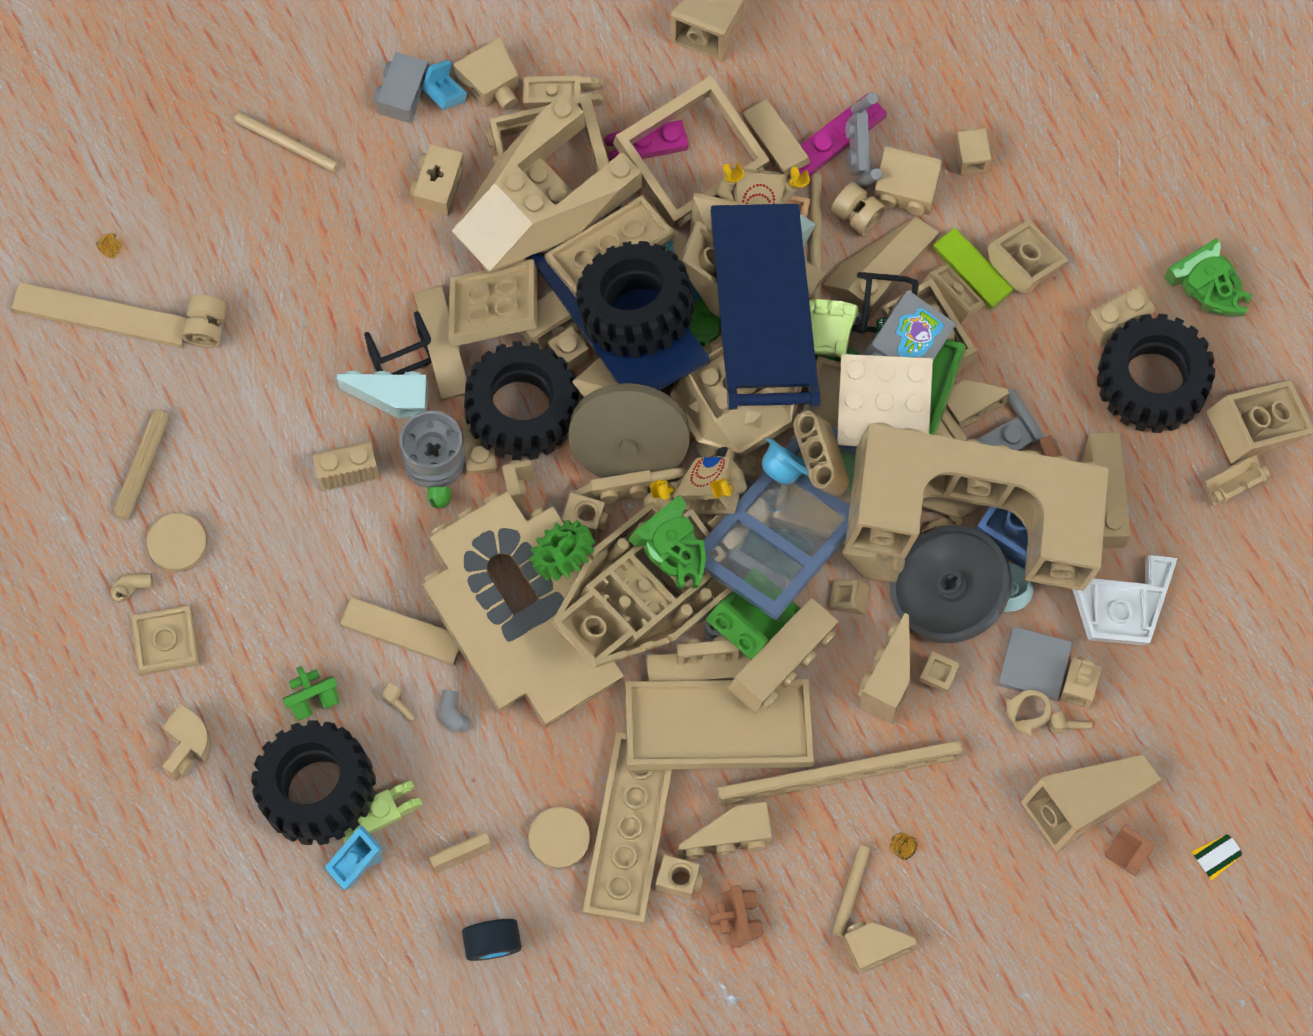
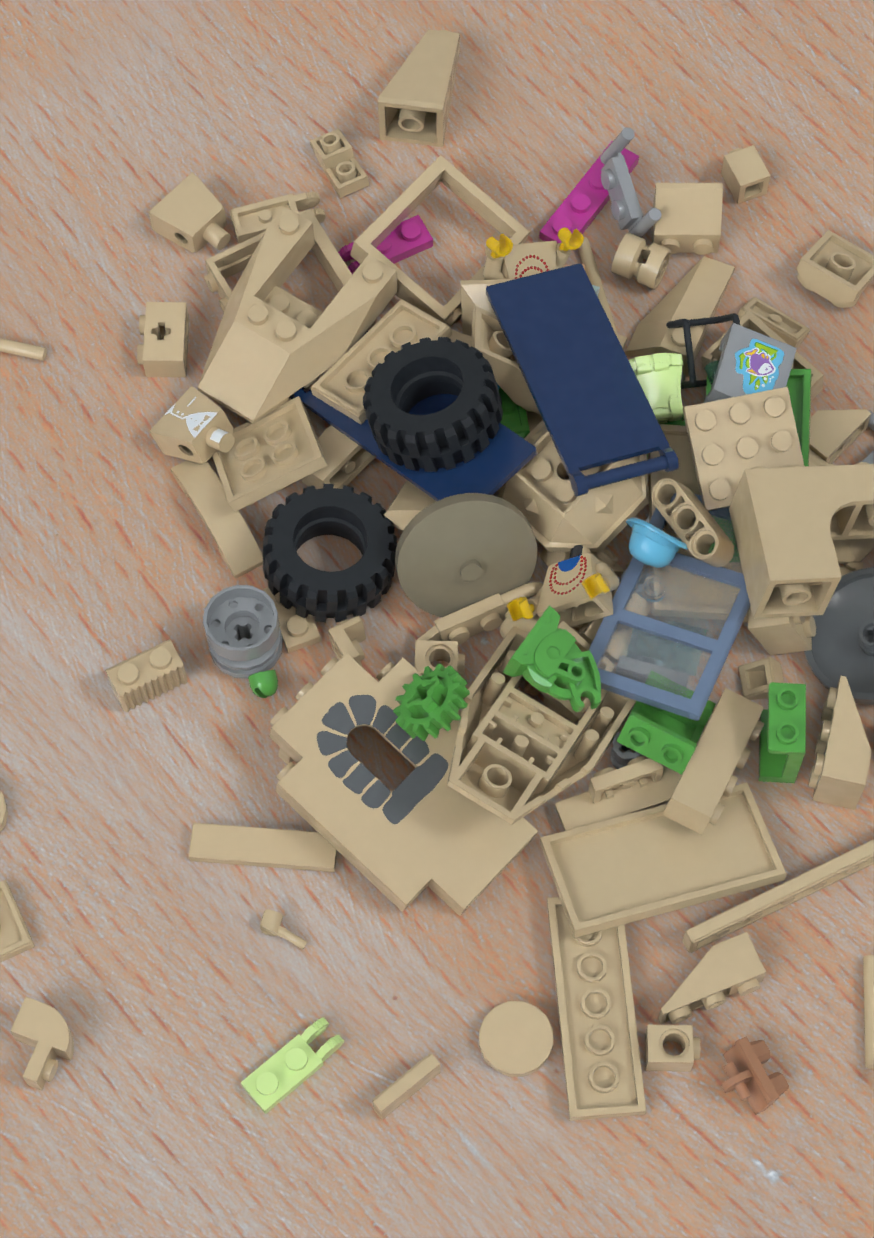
camera: 15 degrees left, 5 degrees down
(293, 752) = (184, 1011): black tyre -> none
(298, 700) = (191, 936): bright green hips -> none
(354, 858) = (283, 1125): medium azure slope -> none
(394, 394) = (177, 583): light aqua slope -> none
(401, 87) = (97, 251): light grey brick -> none
(425, 340) = (139, 529): black piece -> none
(440, 265) = (193, 428): none -> tan torso
(442, 87) = (141, 241): medium azure bracket -> none
(450, 715) = (347, 928): light grey arm -> none
(491, 939) = (474, 1179): black wheel -> none
(572, 348) = (370, 480): tan brick -> none
(629, 56) = (339, 163): none -> tan slope
(775, 137) = (528, 208): tan tile -> none
(845, 646) = (783, 733): none -> bright green panel
(973, 268) = (784, 295): lime tile -> none

